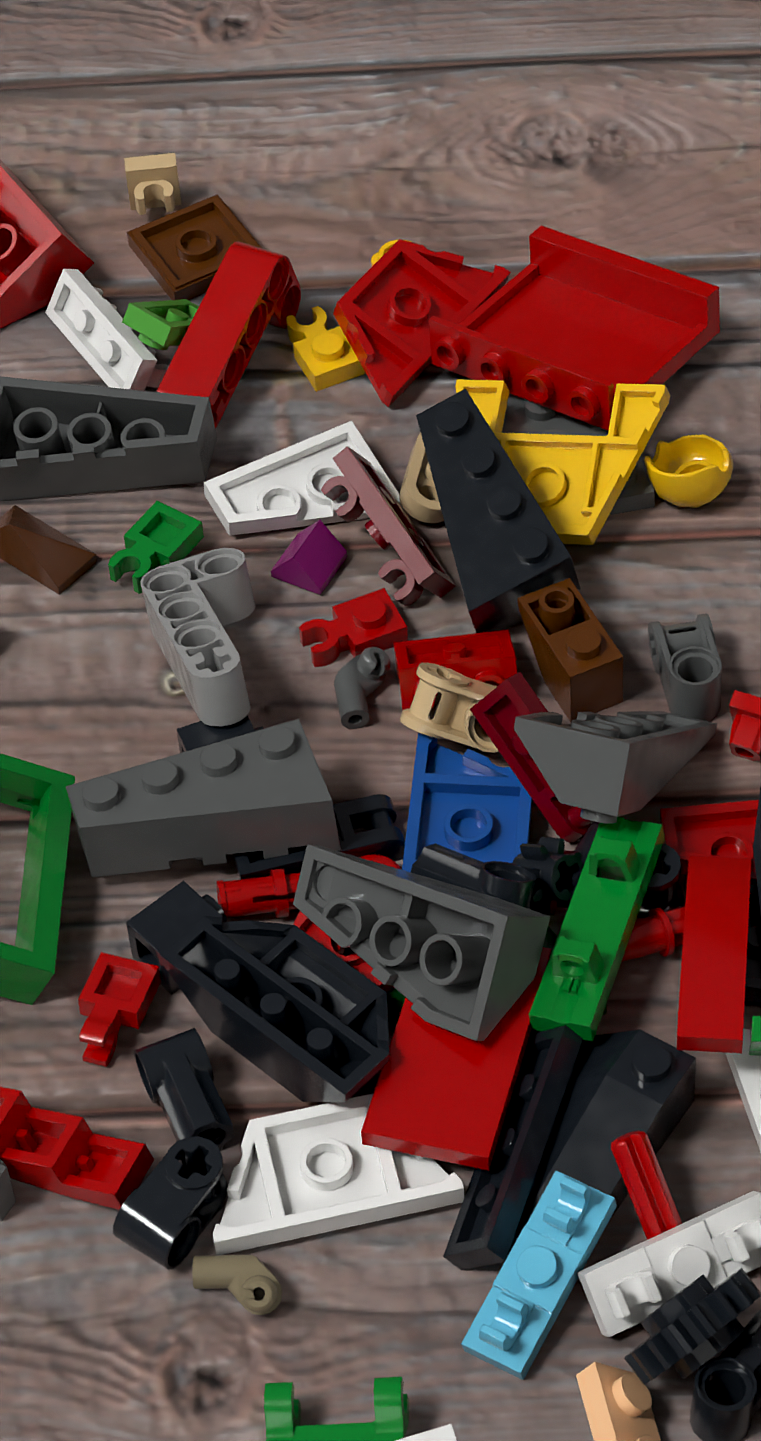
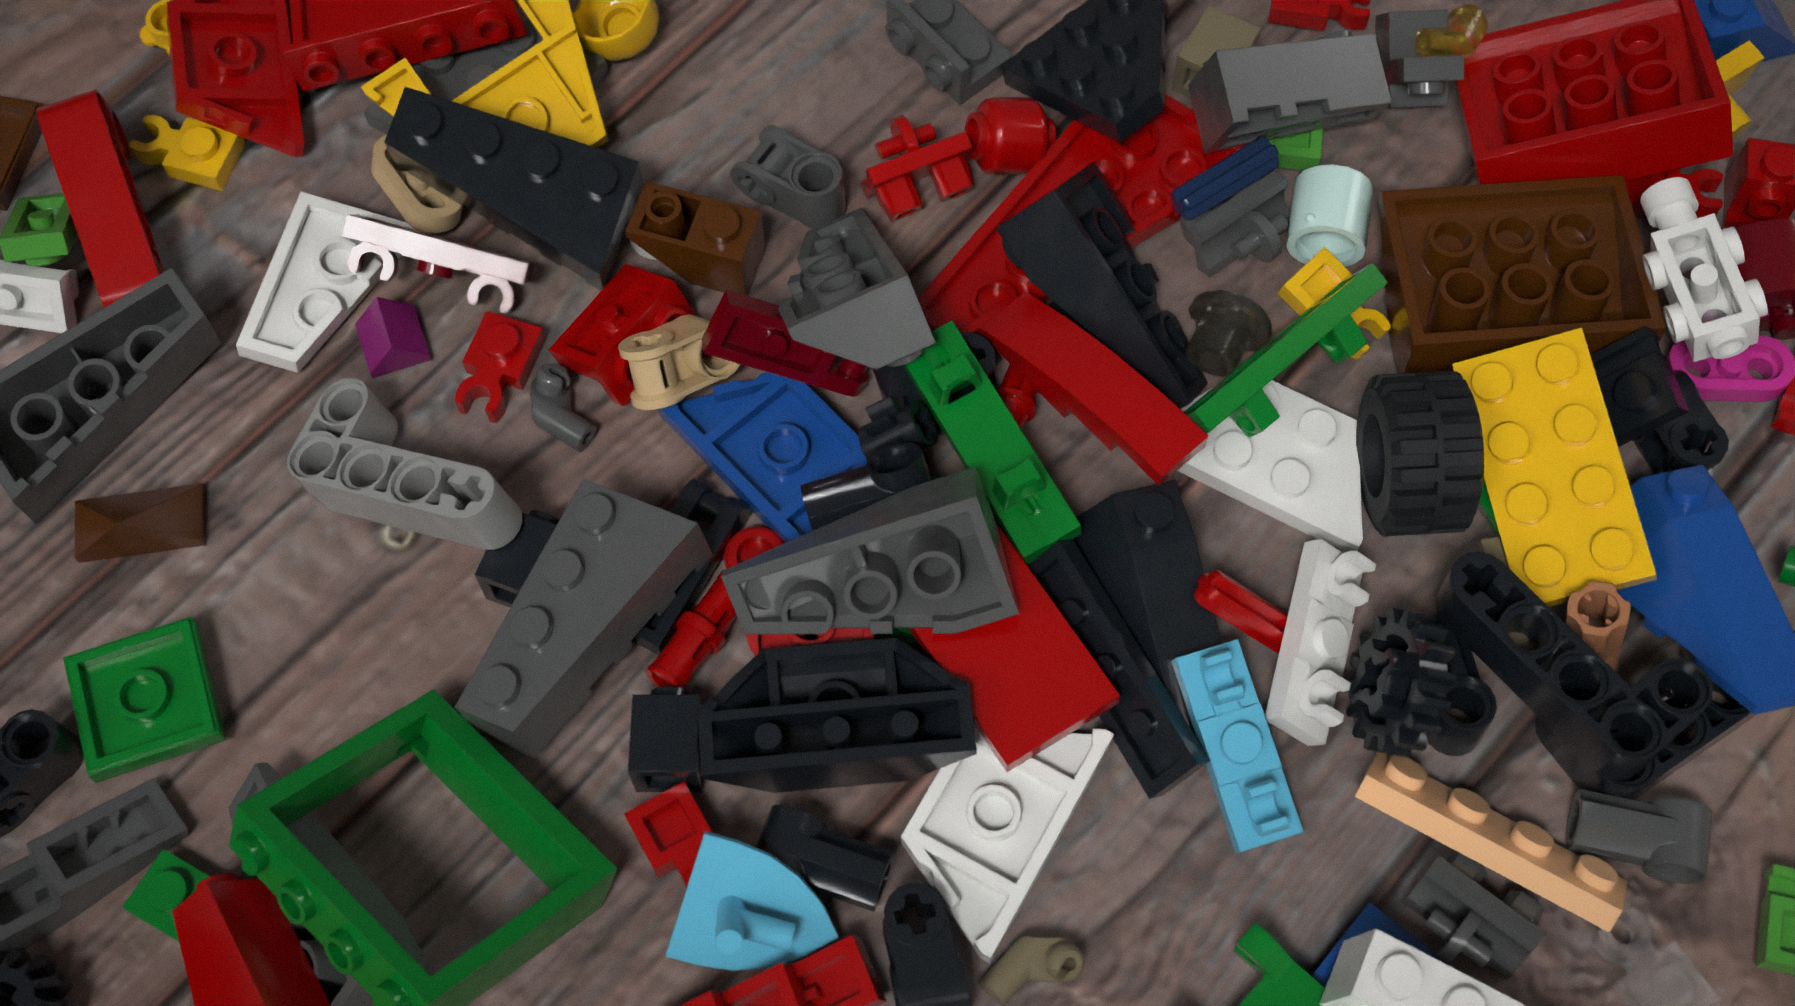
camera: 50 degrees left, 15 degrees up
(103, 1071) = (746, 910): none -> medium azure shield
(154, 541) = (246, 427): green plate -> none

